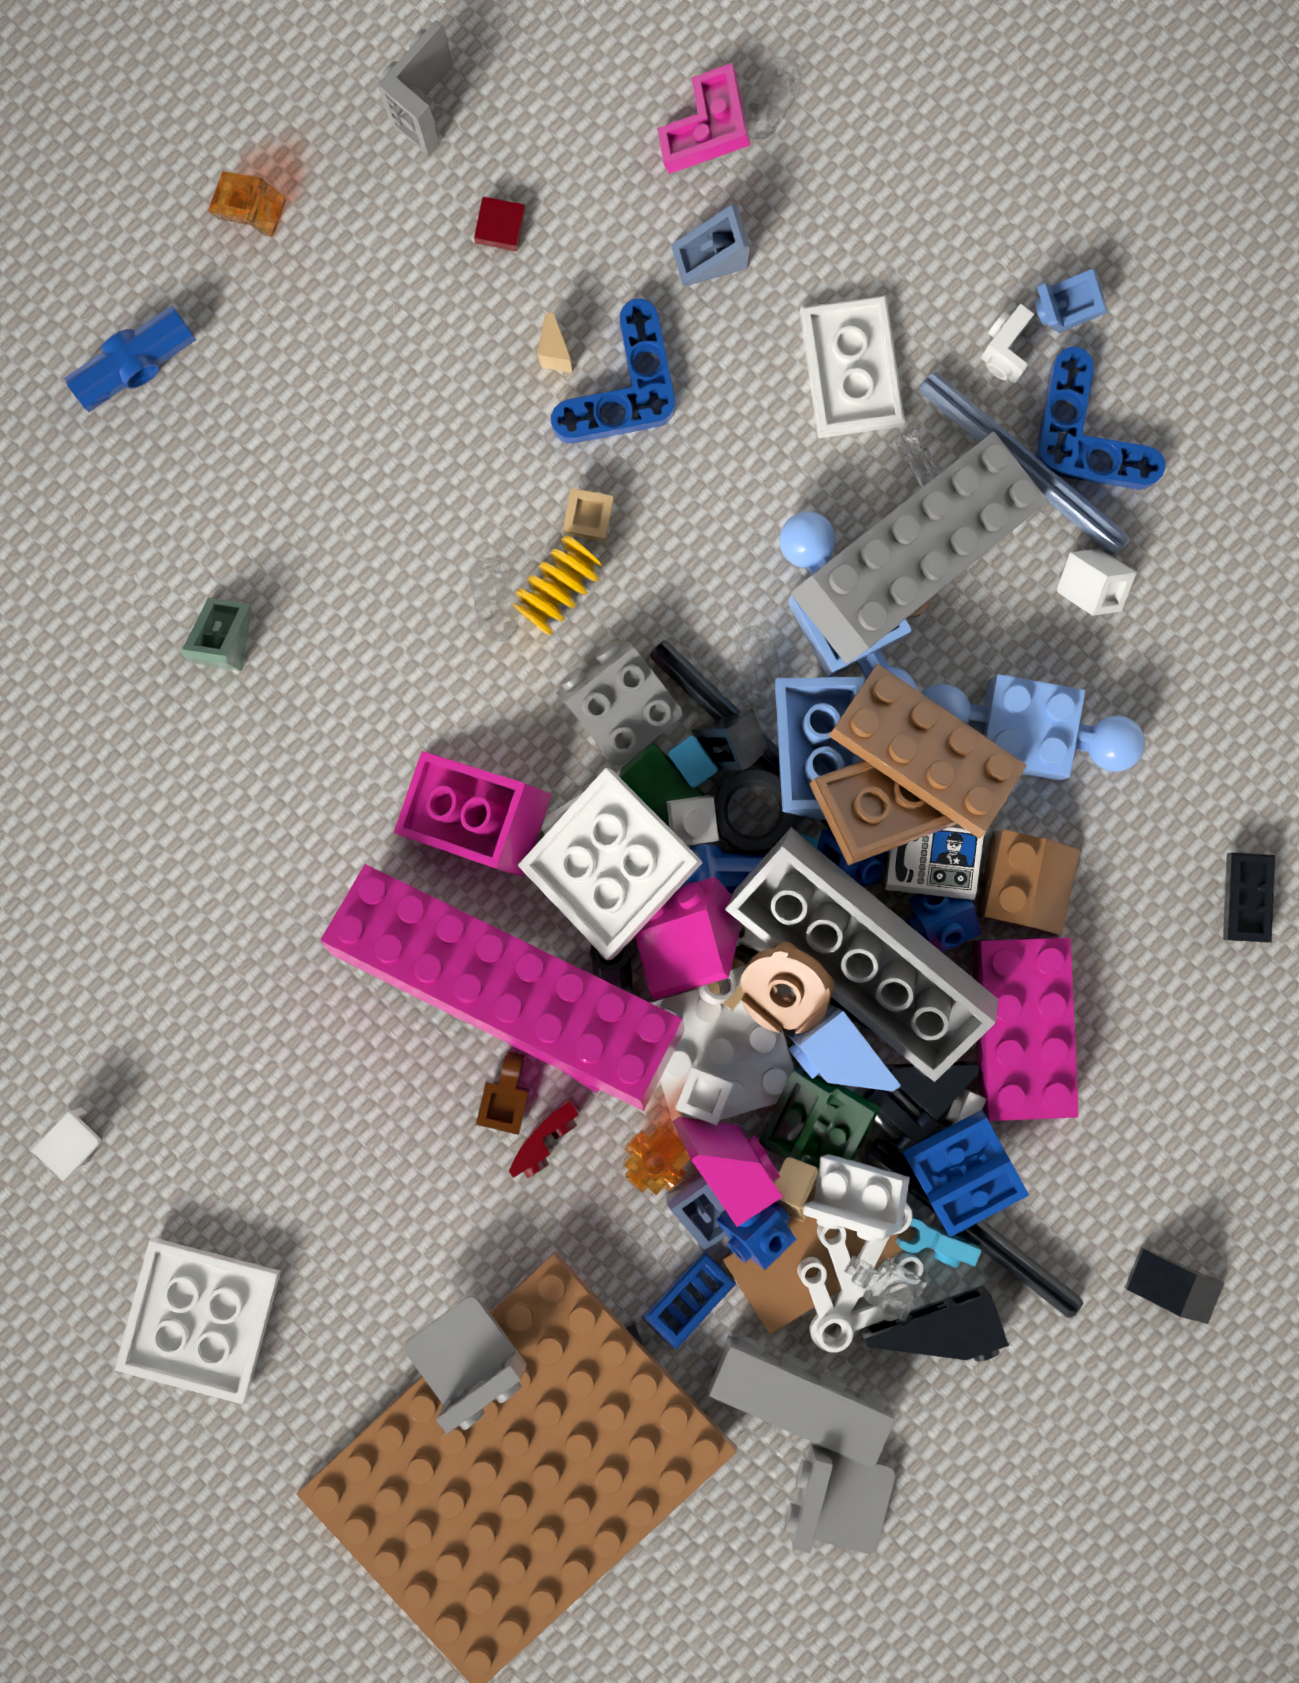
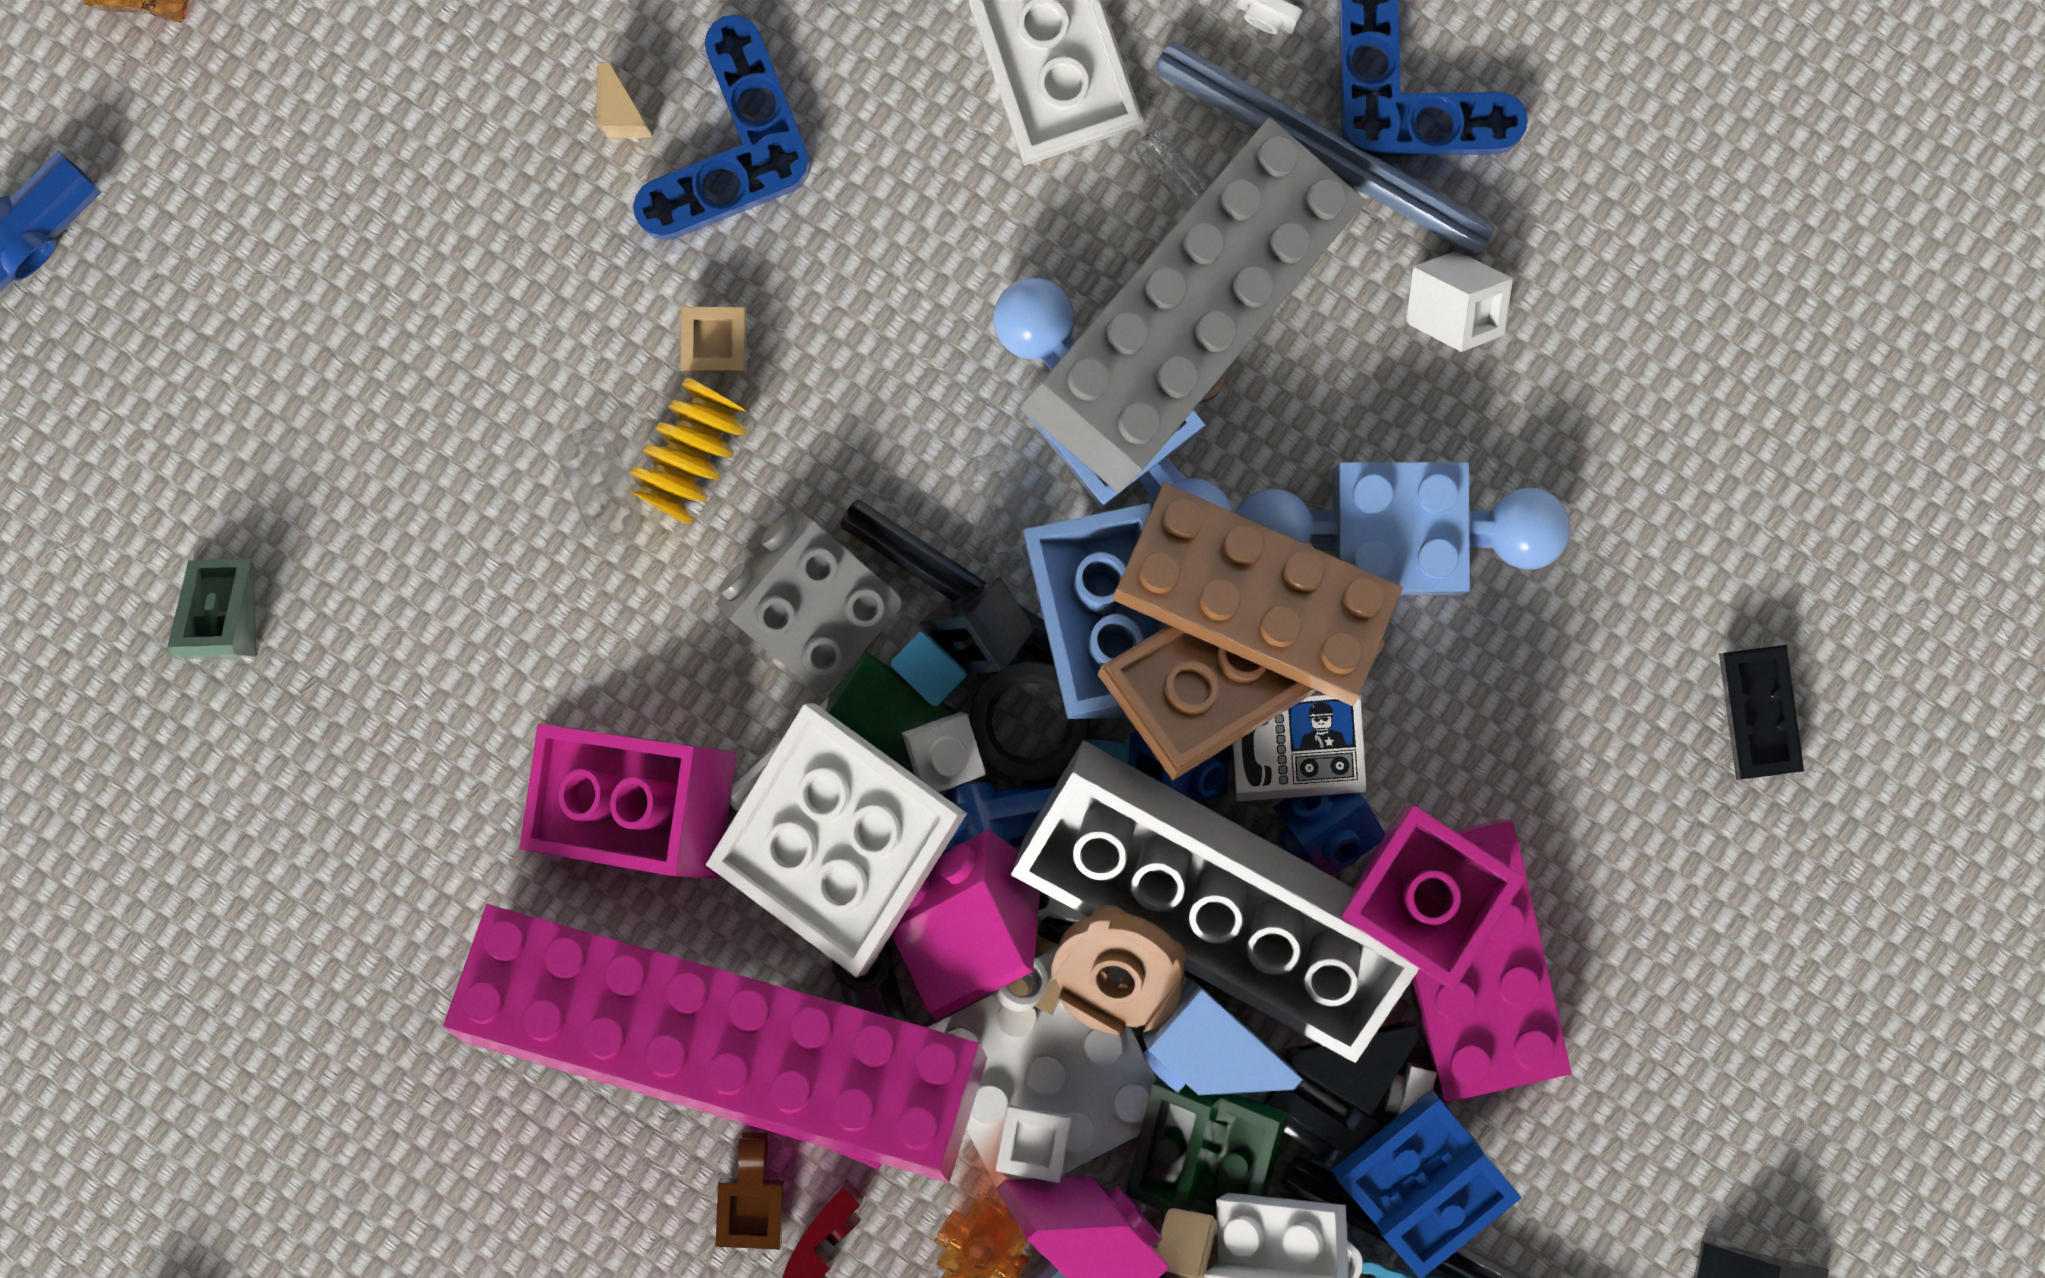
camera: 15 degrees left, 0 degrees up
(1010, 976) = (1431, 896): none -> dark pink slope
(1027, 881) = (1442, 749): medium nougat slope -> none

